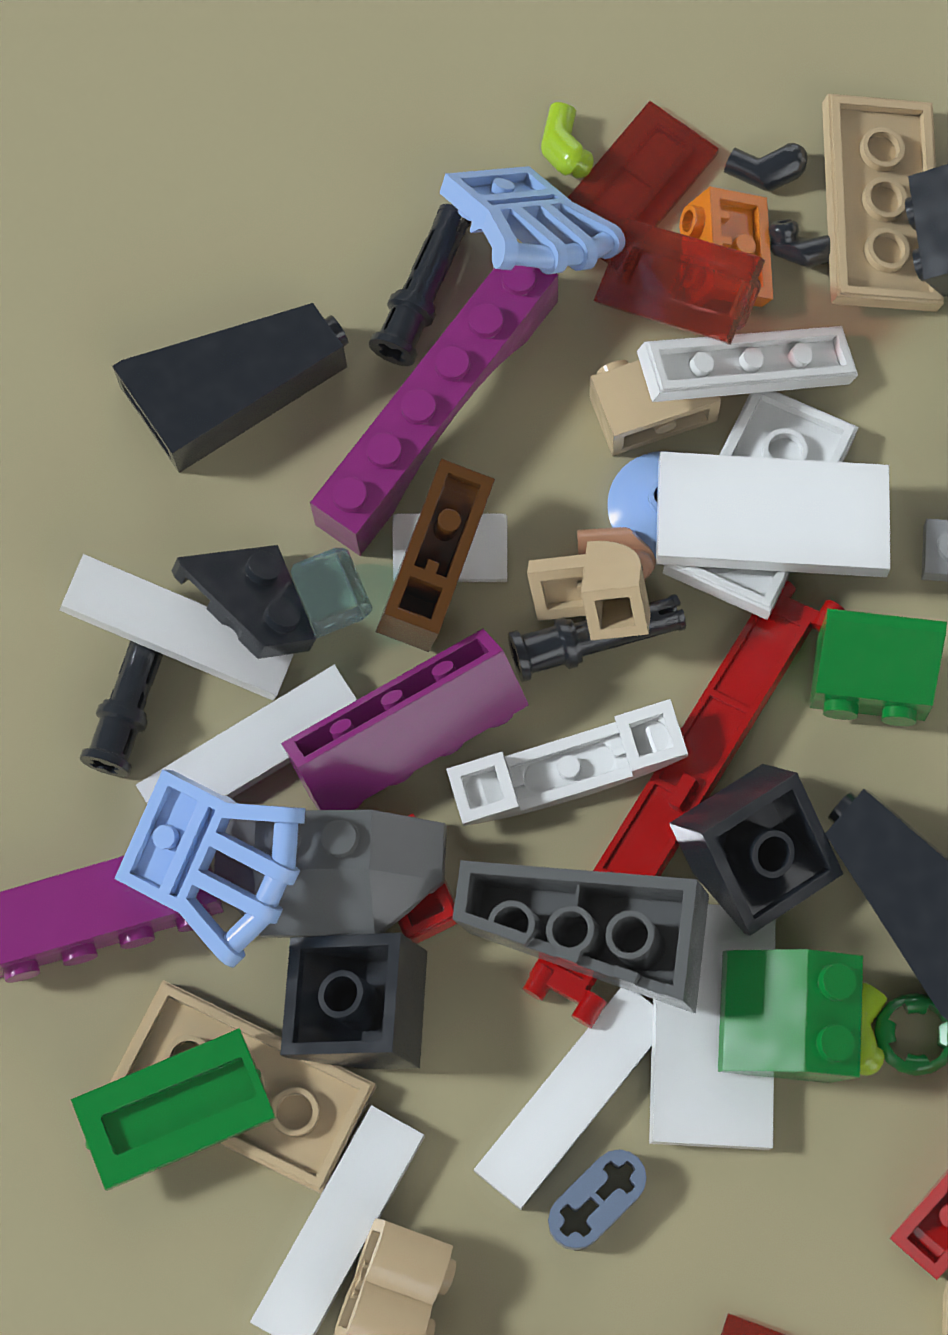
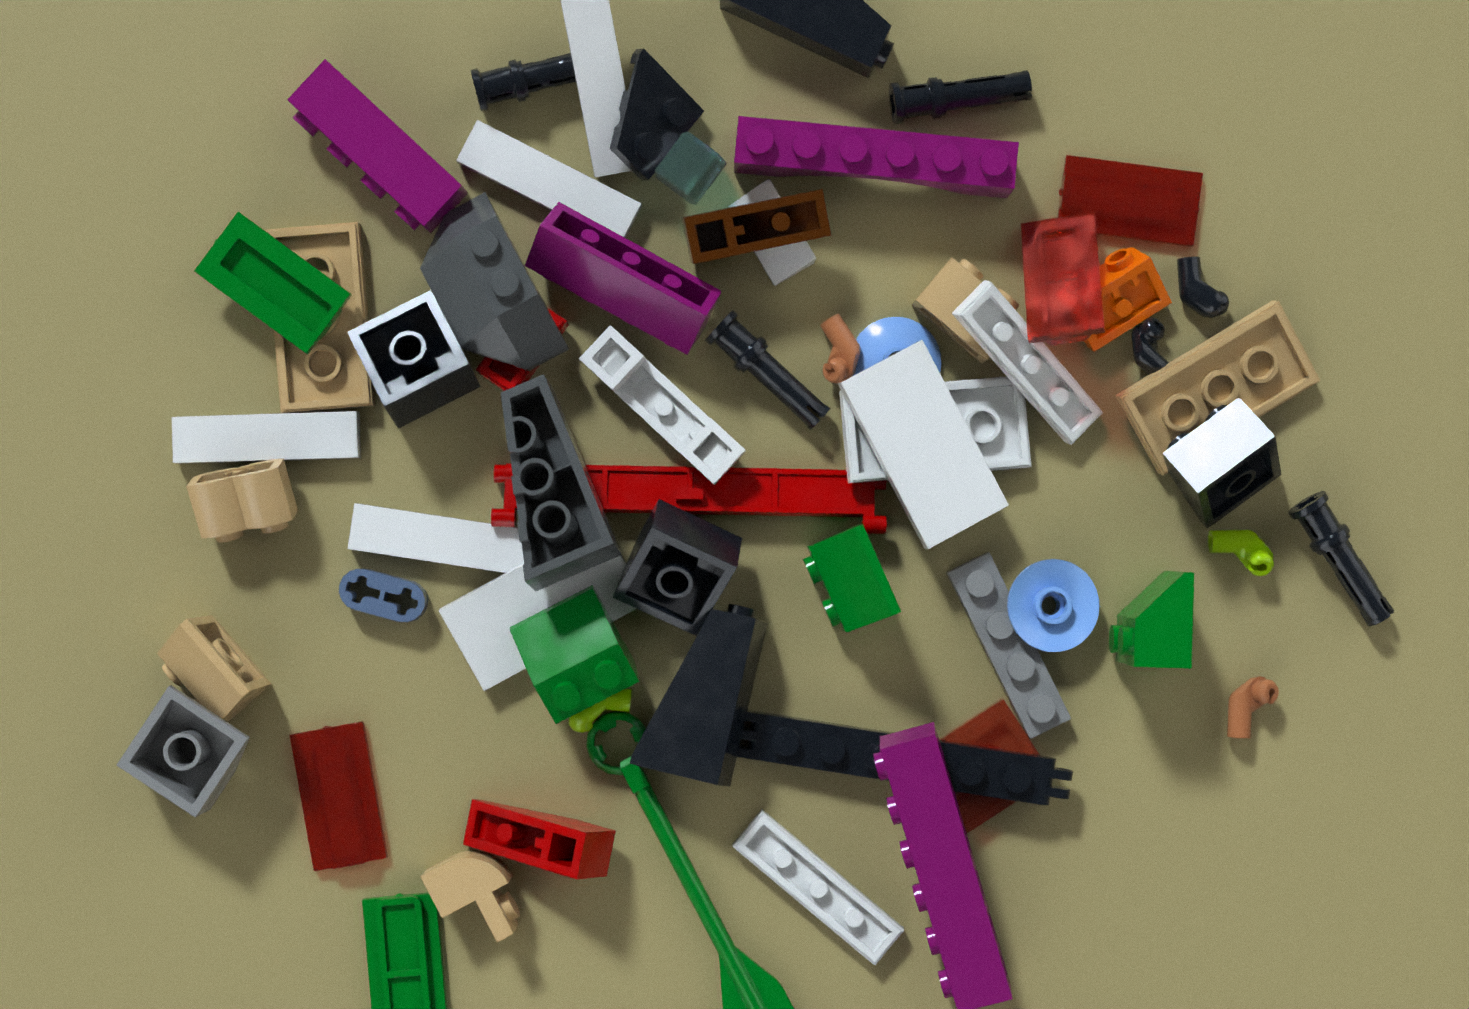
camera: 55 degrees right, 15 degrees up
(177, 844) = (434, 177): light blue plate -> none
(527, 207) = (1054, 120): light blue plate -> none
(561, 147) = (1126, 129): lime arm -> none
(601, 584) = (799, 352): tan brick -> none

